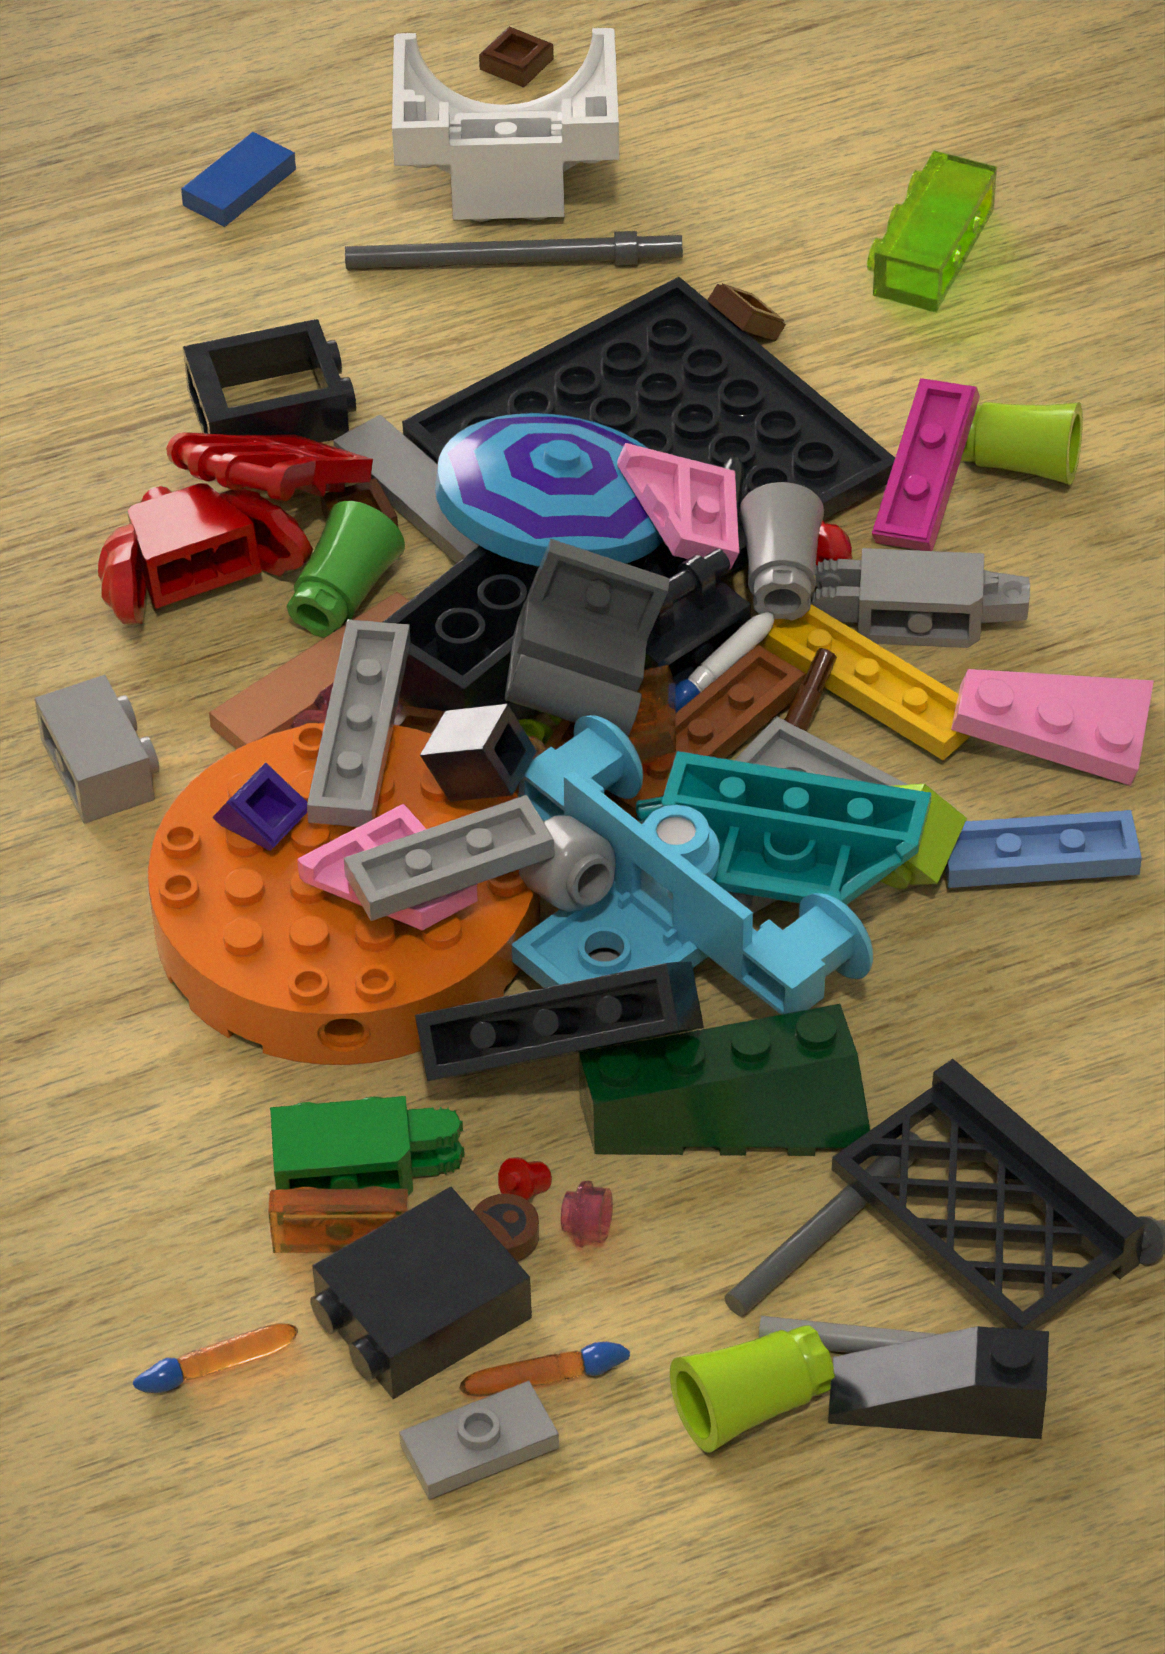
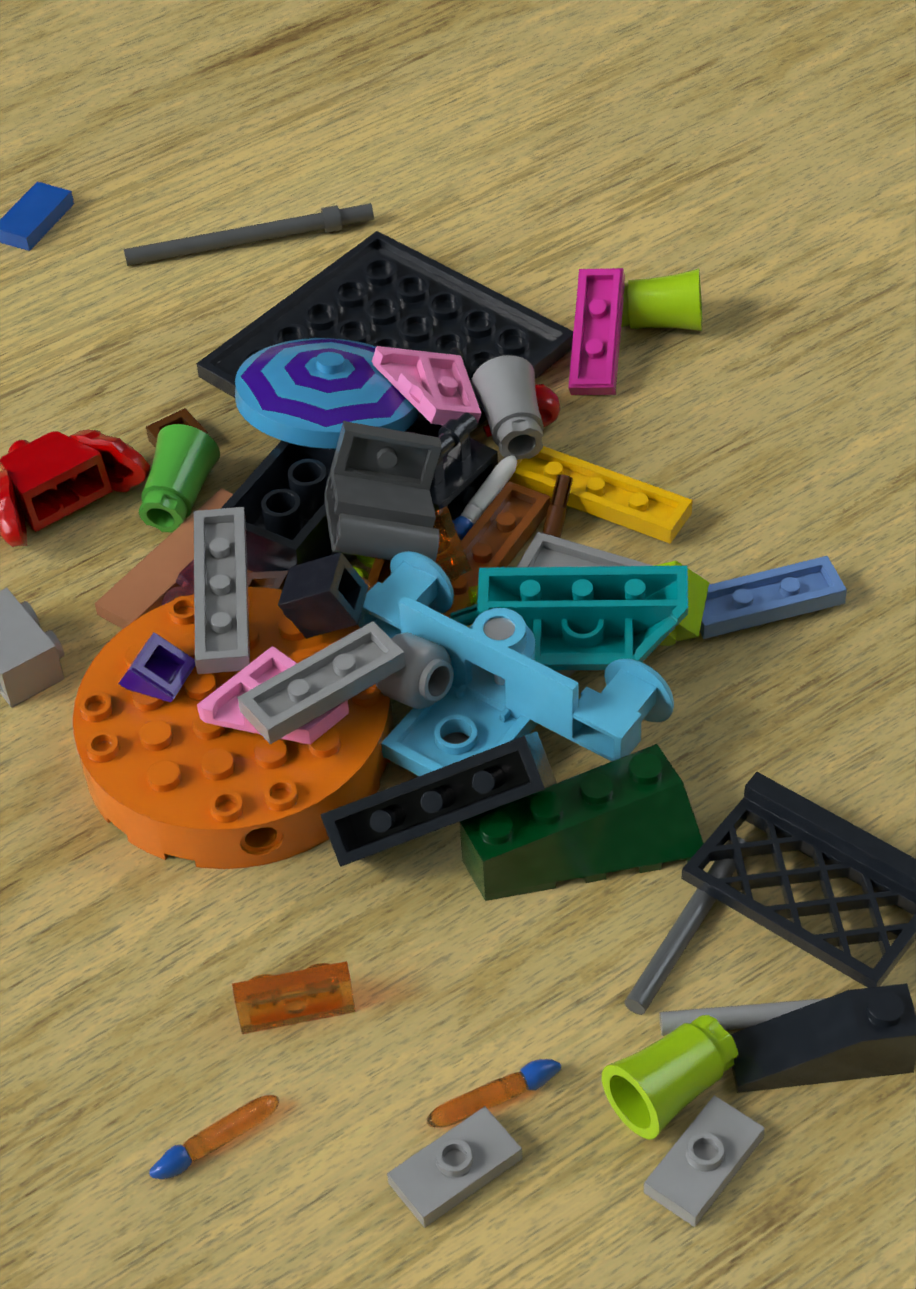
camera: 10 degrees left, 0 degrees up
(266, 355) = (96, 381): black window -> none
(268, 463) = (101, 407): red plate -> none
(362, 1144) = (296, 930): green hinge -> none
(407, 481) = (211, 406): light grey tile -> none
(420, 1293) = (376, 1047): black brick -> none
(511, 155) = (234, 168): white piece -> none
(512, 1222) = (430, 977): reddish brown tile -> none
(516, 56) = (218, 104): reddish brown tile -> none
(523, 1177) = (434, 933): red piece -> none
(587, 1213) = (495, 952): clear pink plate -> none
(747, 311) = (433, 247): reddish brown tile -> none
(765, 1486) = (704, 1160): none -> light grey plate
(919, 596) = (620, 425): light grey hinge -> none
(932, 231) = (551, 173): clear neon green brick -> none
(1060, 718) = (750, 496): bright pink wing -> none

